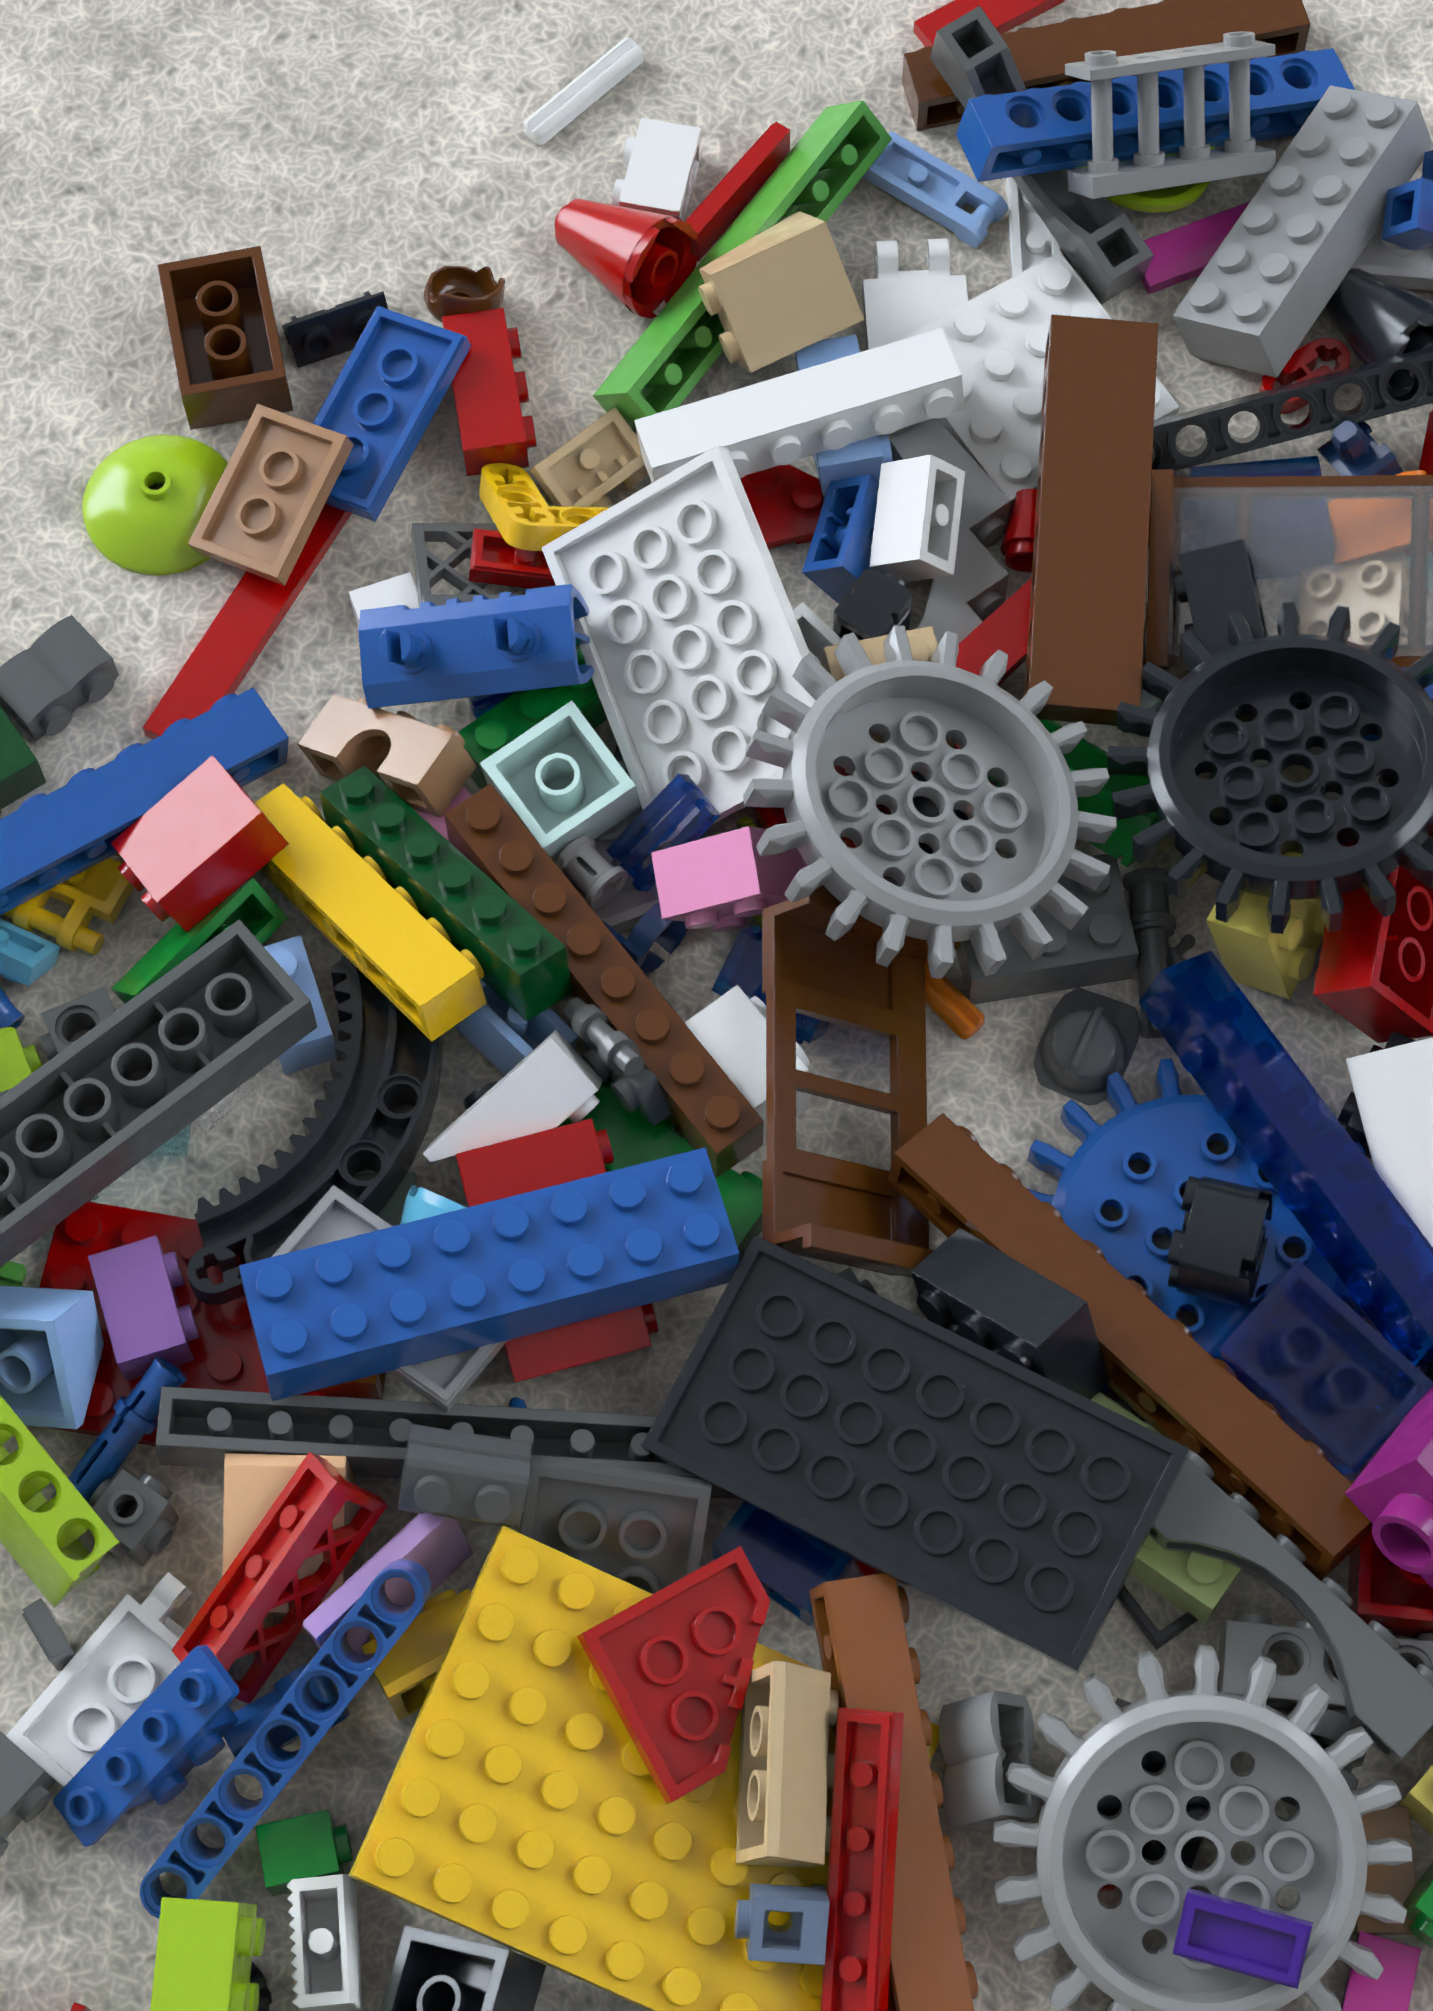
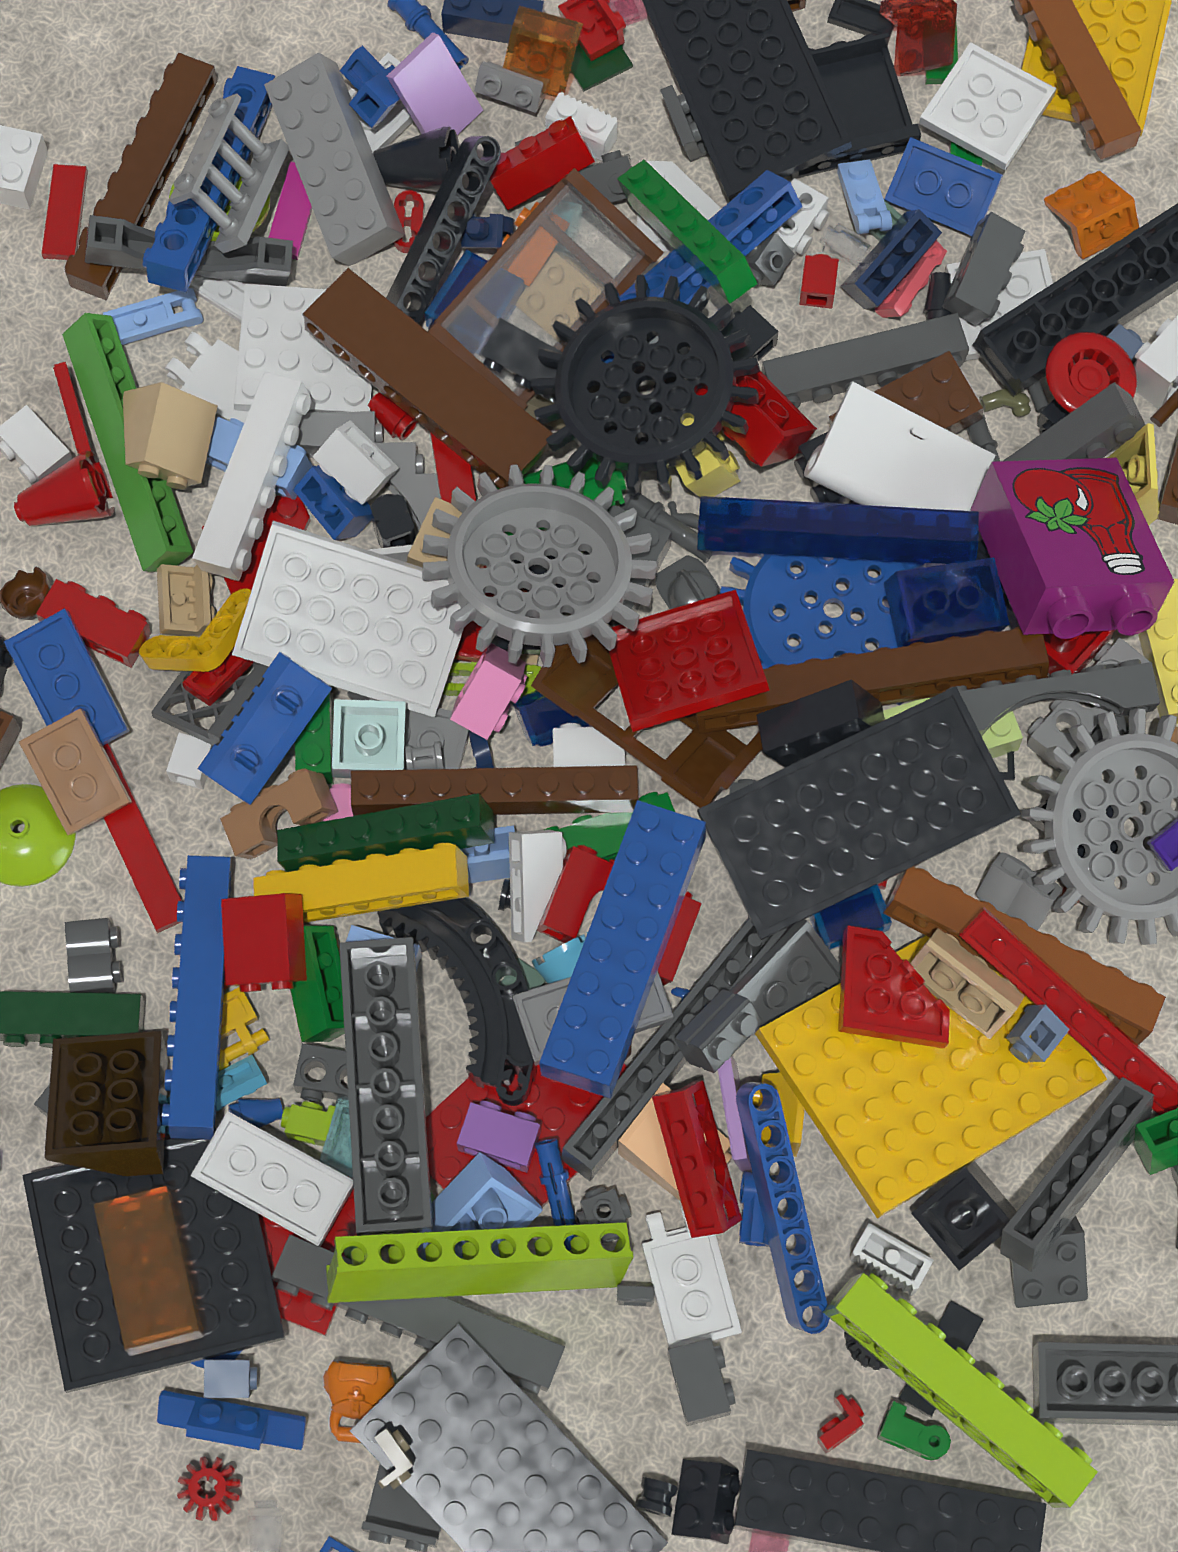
camera: 55 degrees left, 5 degrees up
(154, 1748) = (737, 1278): blue bracket -> none
(302, 1849) = (835, 1241): green brick -> none
(618, 1060) = (547, 814): dark grey plate -> none
(621, 848) = (434, 736): clear blue tile -> none
(962, 1087) = (686, 661): none -> red plate
(1220, 1240) = (855, 599): black brick -> none

